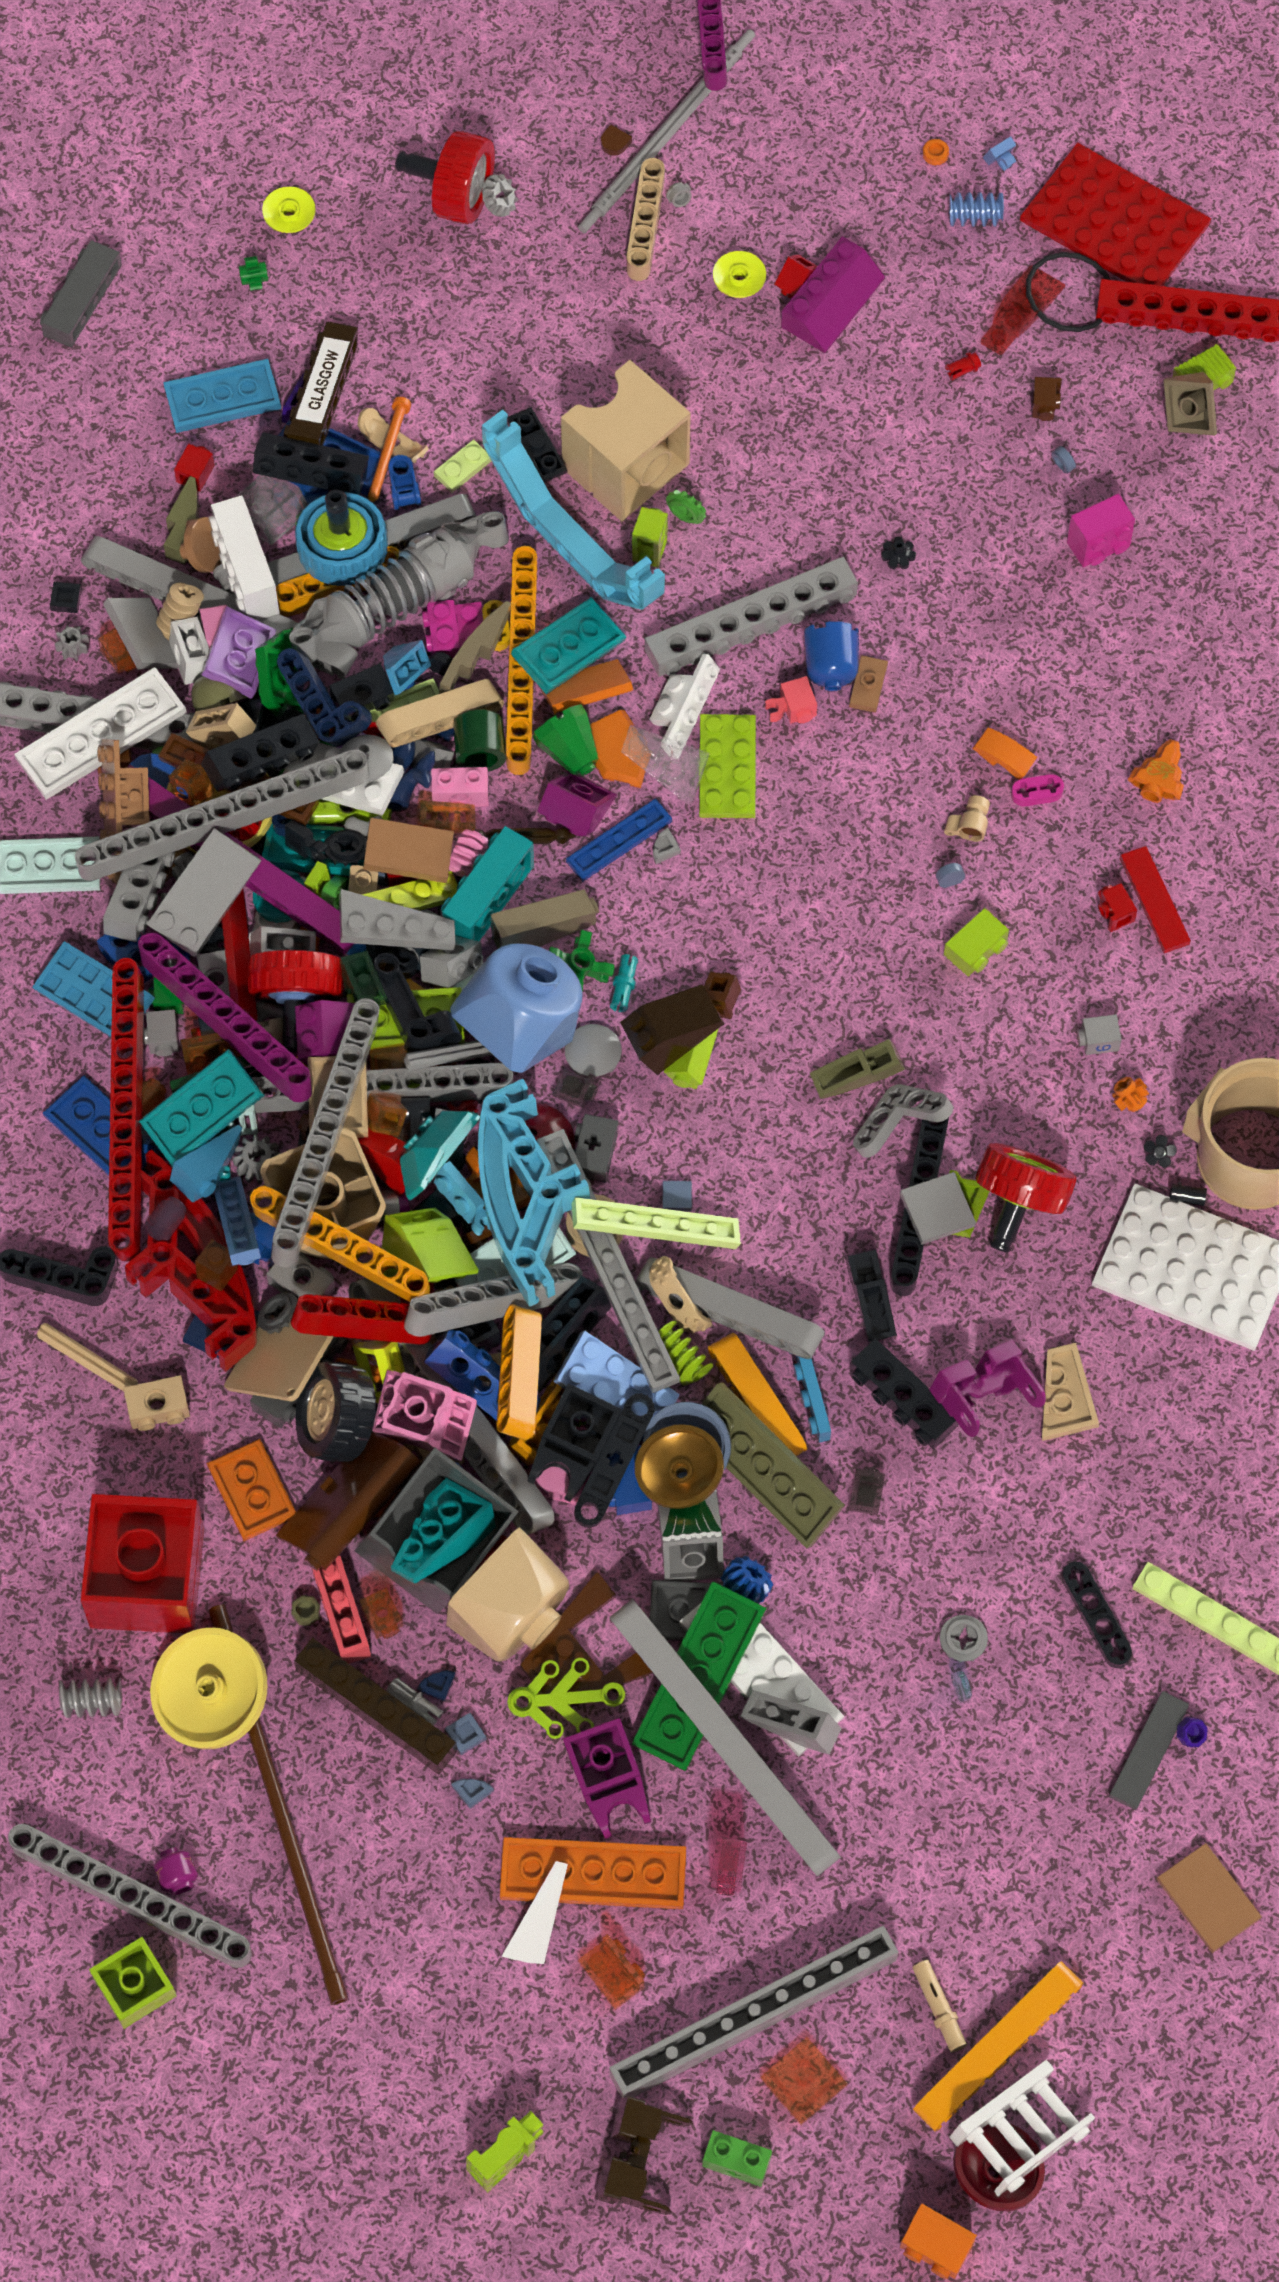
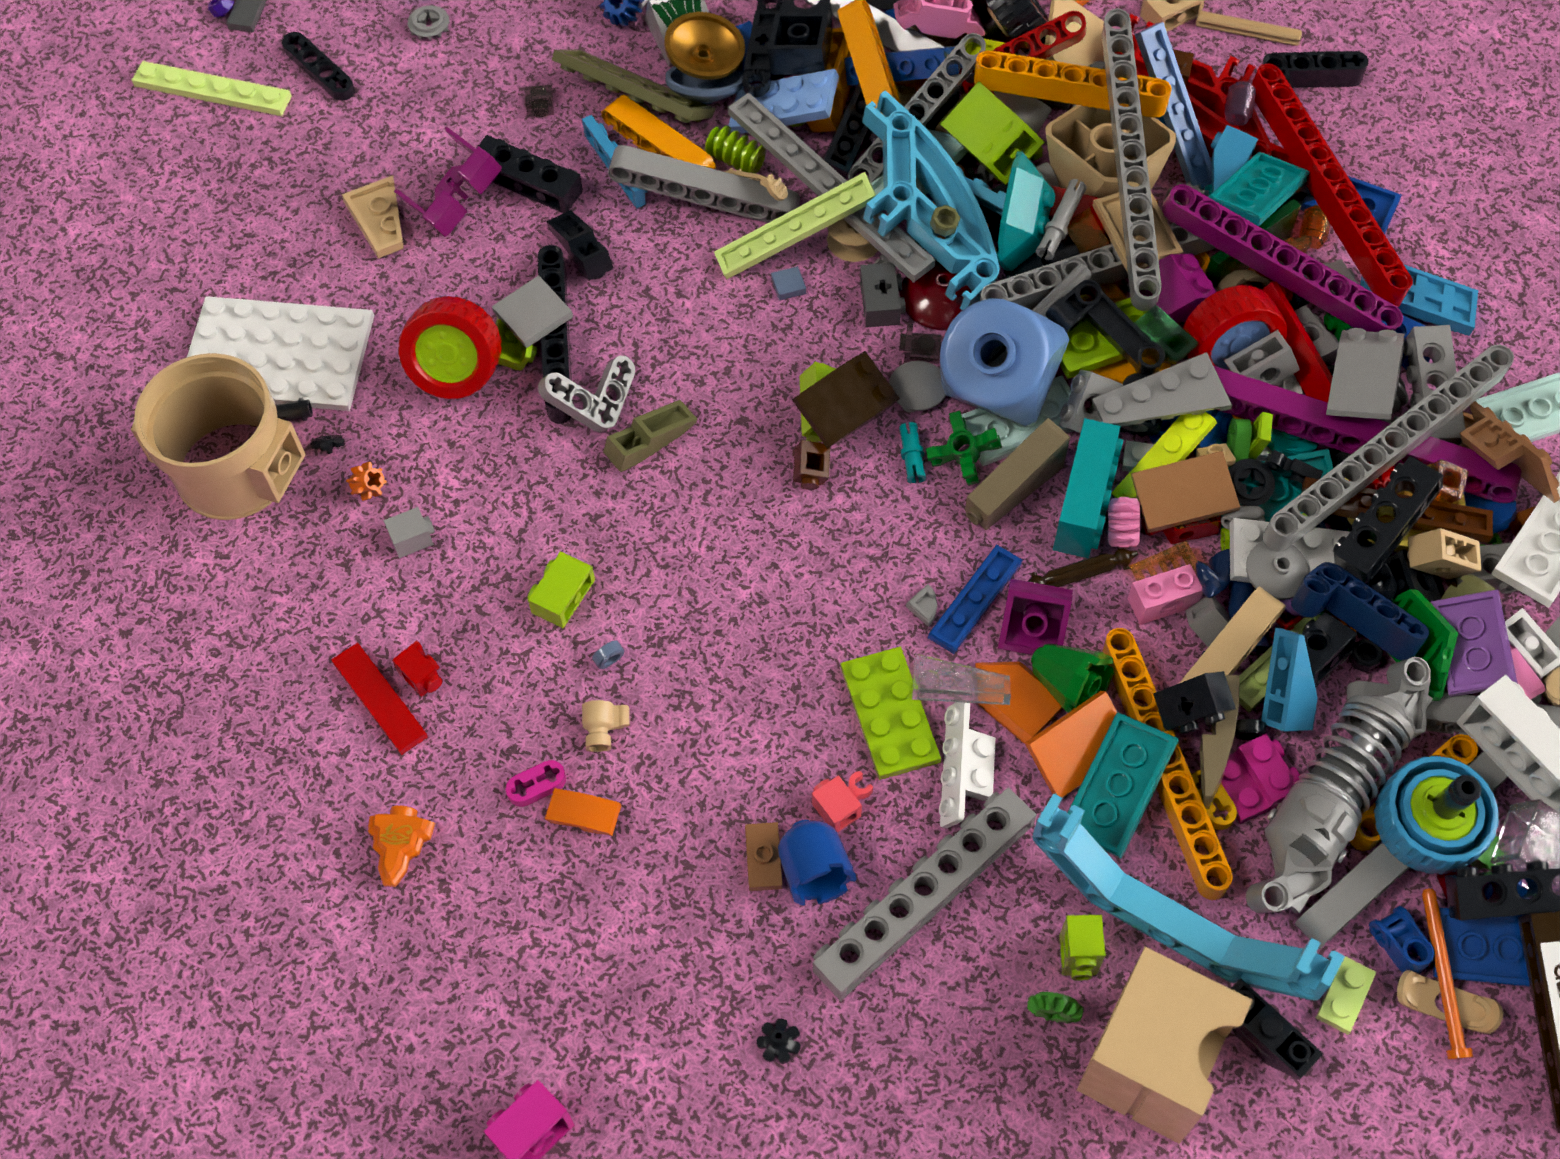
camera: 165 degrees right, 5 degrees down
(416, 1114) = (1057, 228): none -> light grey pin
(479, 739) = (1167, 644): dark green piece -> none
(488, 667) = (1195, 701): none -> black brick
(521, 1144) = (945, 220): none -> olive tile

